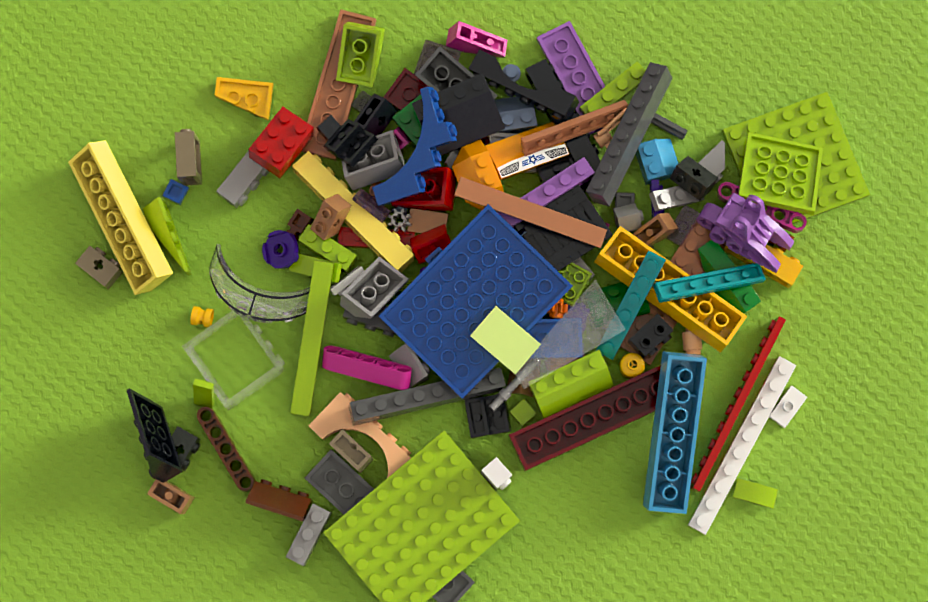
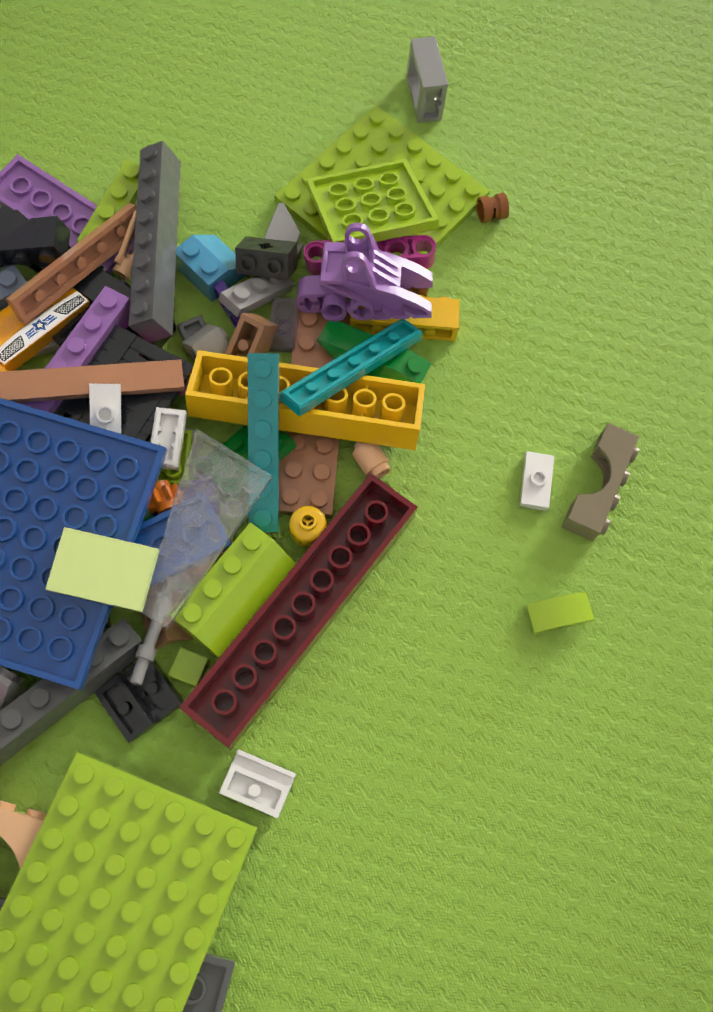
camera: 35 degrees left, 10 degrees down
(497, 474) = (186, 775): white brick -> none
(530, 497) = (257, 783): none -> white plate
(549, 241) = (105, 406): none -> white plate
(577, 272) = (169, 433): none -> white plate
(651, 336) = (312, 474): black brick -> none
(669, 126) = (204, 221): dark grey axle -> none
(674, 432) = (413, 583): dark azure brick -> none
(733, 411) = (472, 519): red plate -> none
(741, 445) = (507, 566): white plate -> none
(846, 413) = (589, 511): none -> dark tan arch
(864, 208) = (492, 207): none -> dark orange wheel
(870, 92) = (426, 79): none -> light grey window

